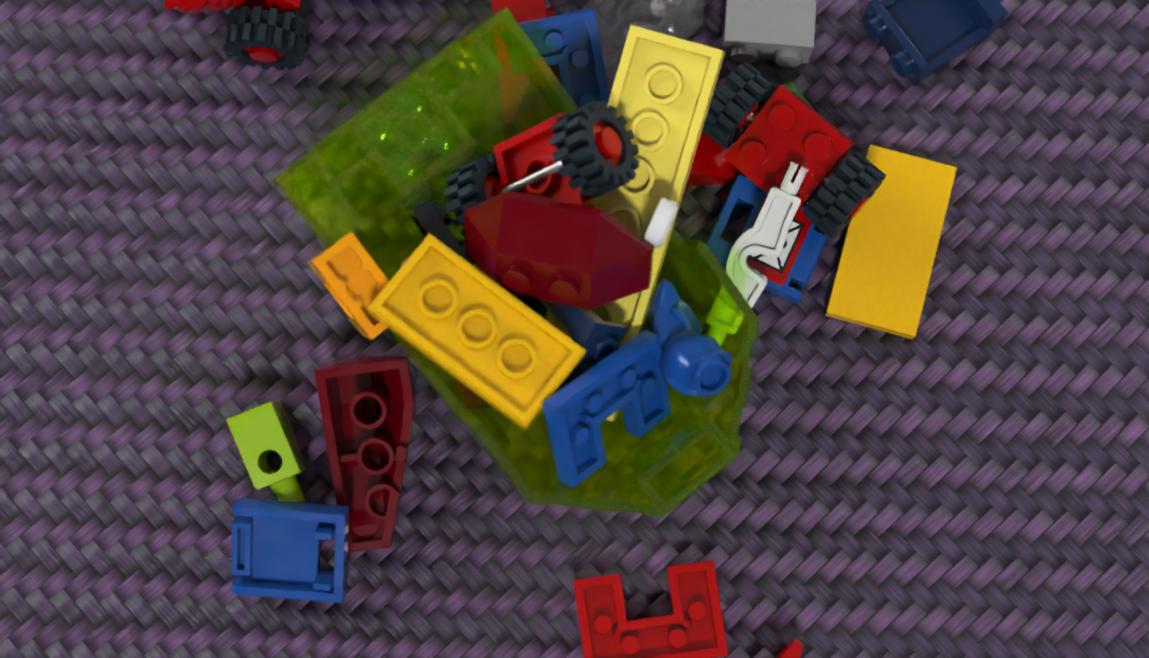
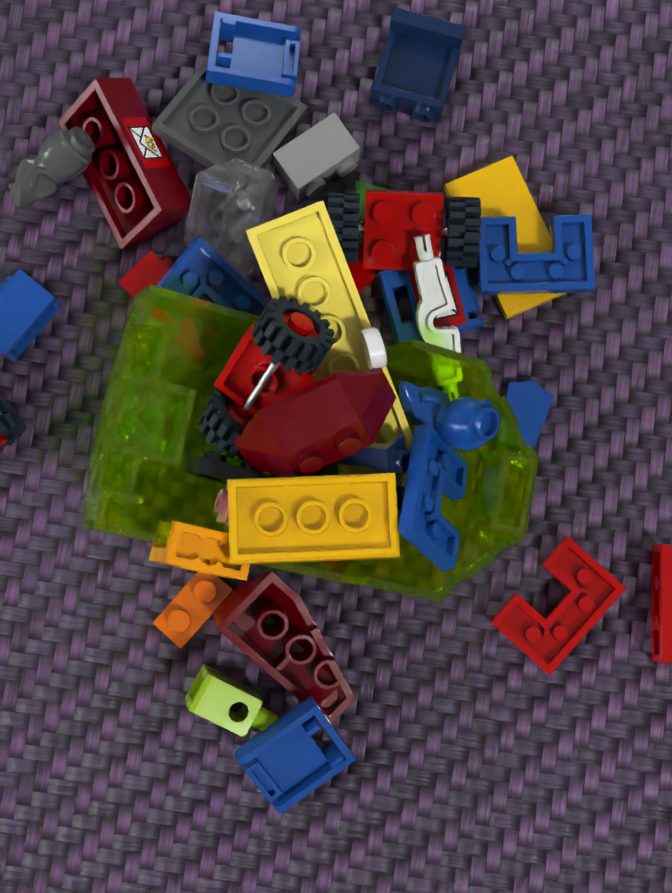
camera: 45 degrees left, 5 degrees up
(312, 342) = (192, 607): none -> orange plate
(771, 415) = (530, 406): none -> blue piece
(912, 308) = (563, 270): none -> blue plate

